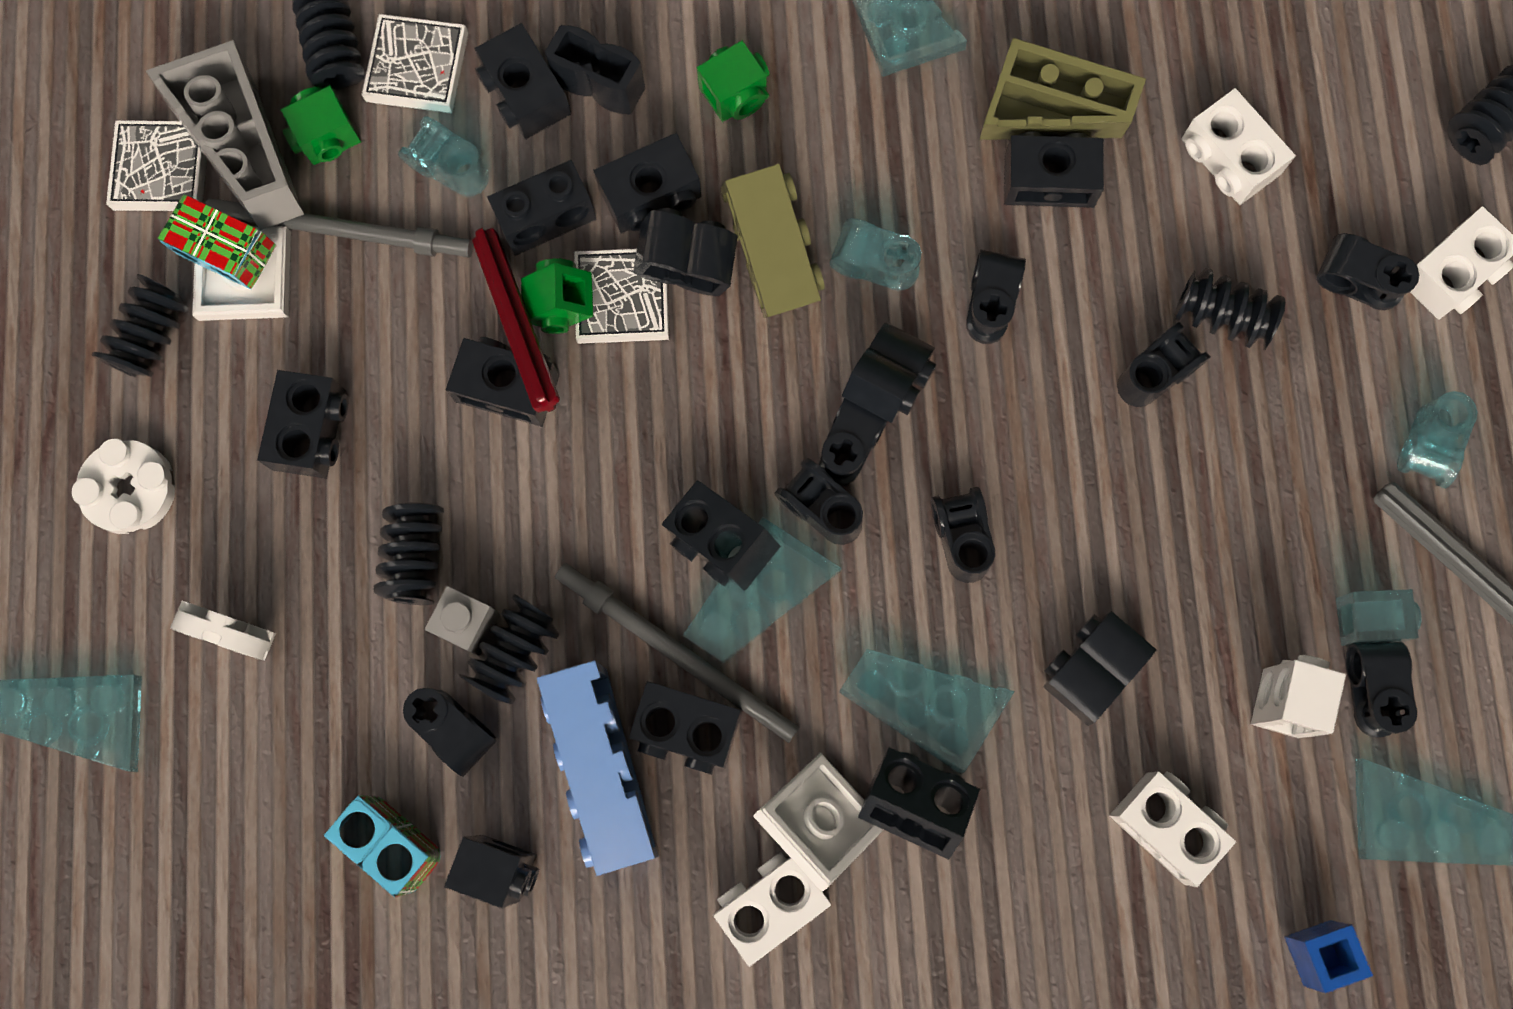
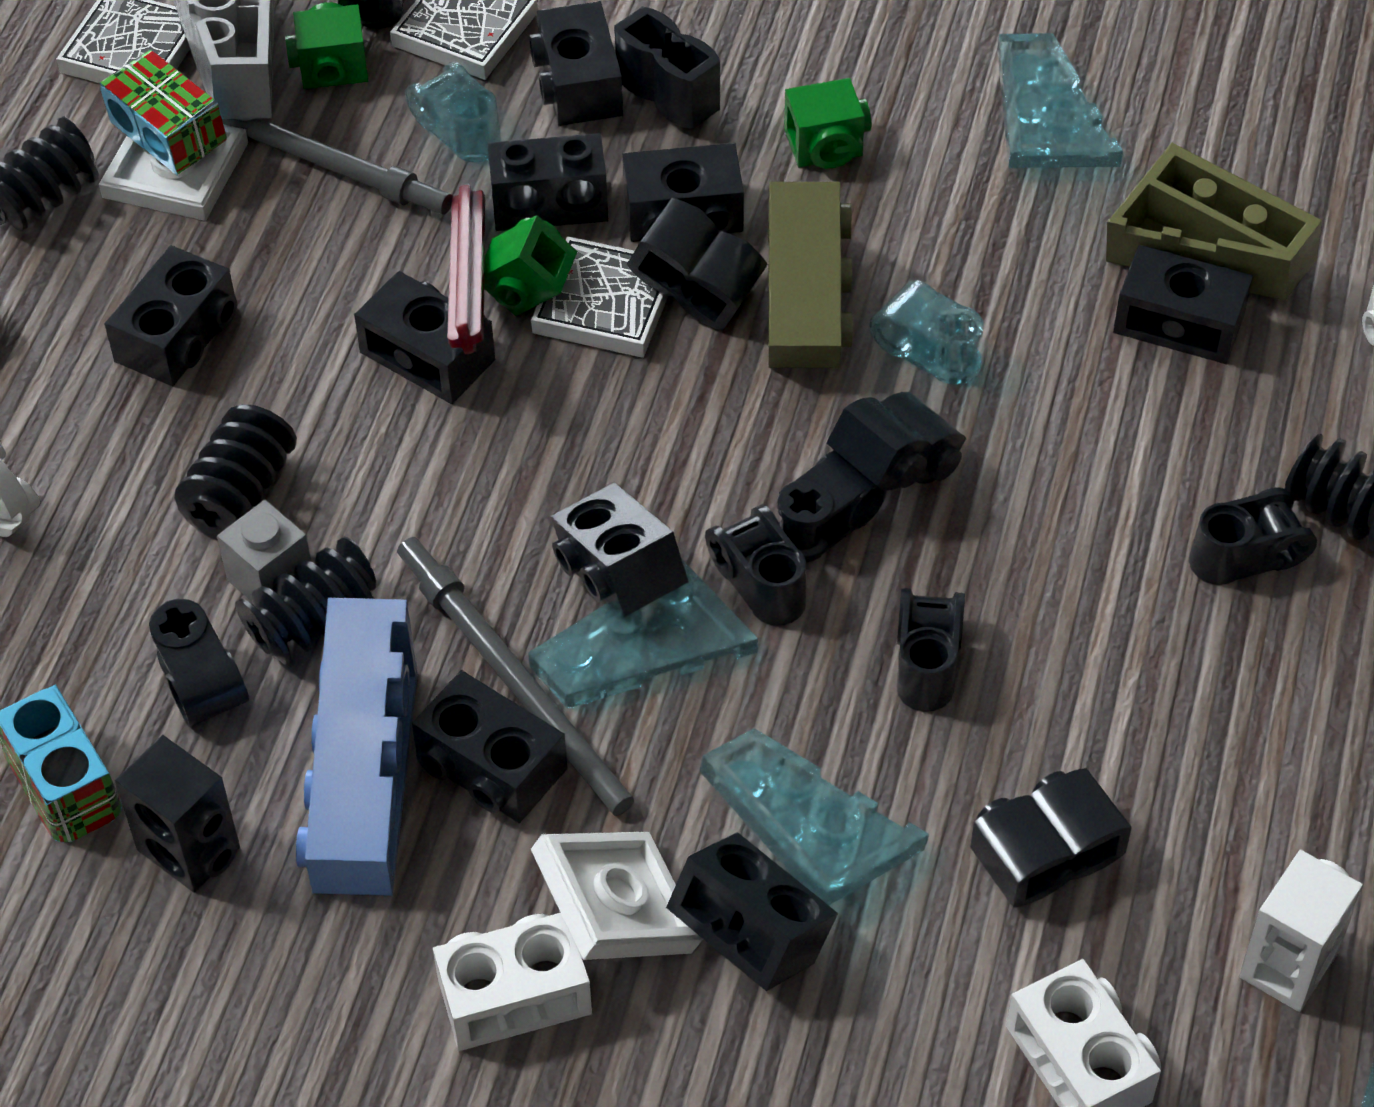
camera: 15 degrees right, 25 degrees down
(994, 290) = (1062, 409): black piece -> none

